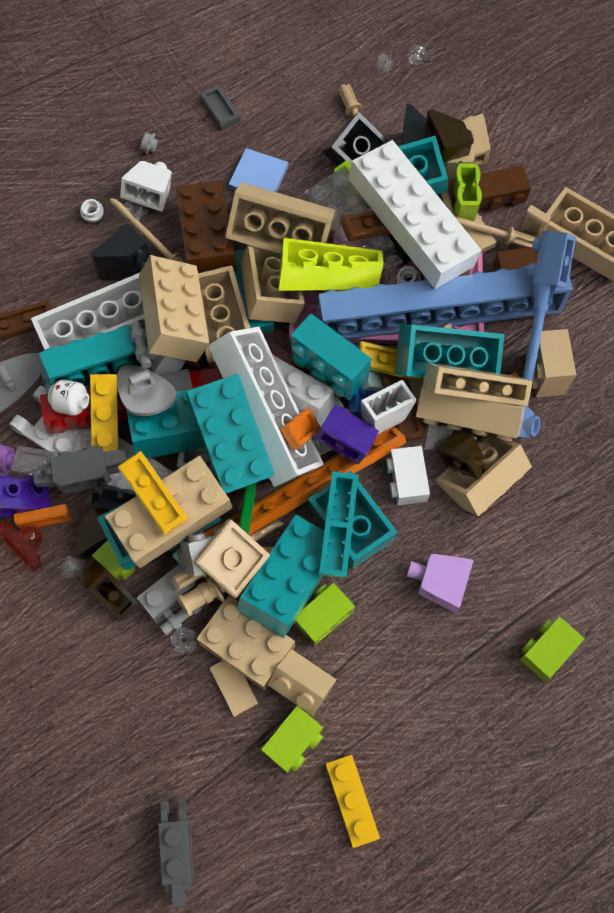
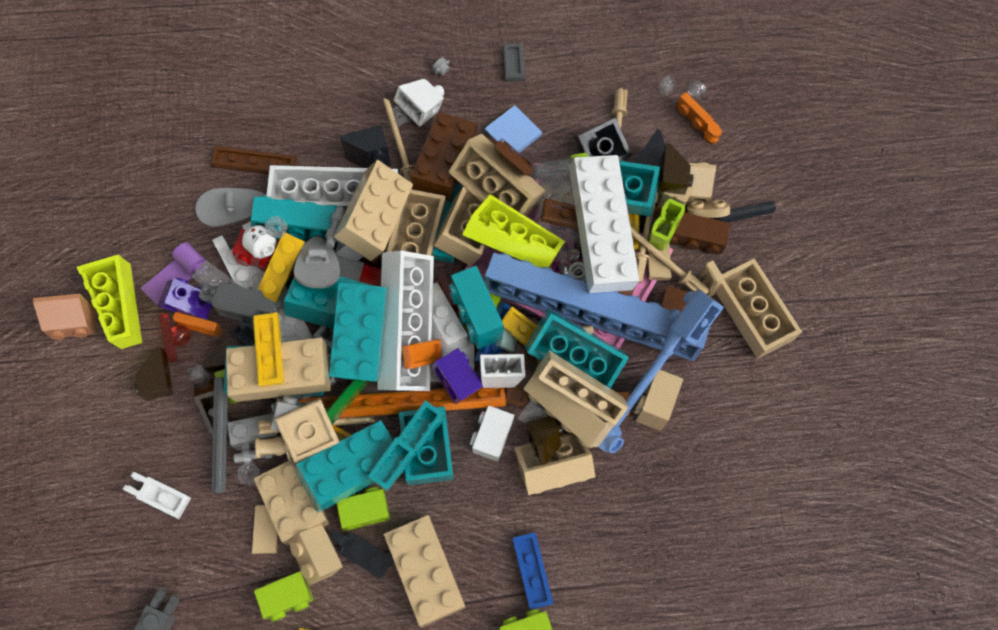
camera: 25 degrees right, 0 degrees up
(27, 593) = (154, 377): none -> dark brown slope
(79, 365) = (270, 227): none -> clear plate
(91, 205) = (367, 96): white plate -> none
(102, 709) = (159, 495): none -> white hinge
(135, 614) = (220, 421): none -> dark grey axle
(289, 188) = (514, 156): none -> reddish brown tile
(346, 657) = (363, 553): none -> black hinge
(419, 641) = (424, 571): none -> tan brick
(434, 80) = (699, 117): none -> orange hinge
(442, 579) = (472, 531): lavender torso -> none
(502, 157) = (717, 208): none -> tan plate
(522, 587) = (532, 571): none -> blue plate
(528, 149) = (749, 211): none -> black axle

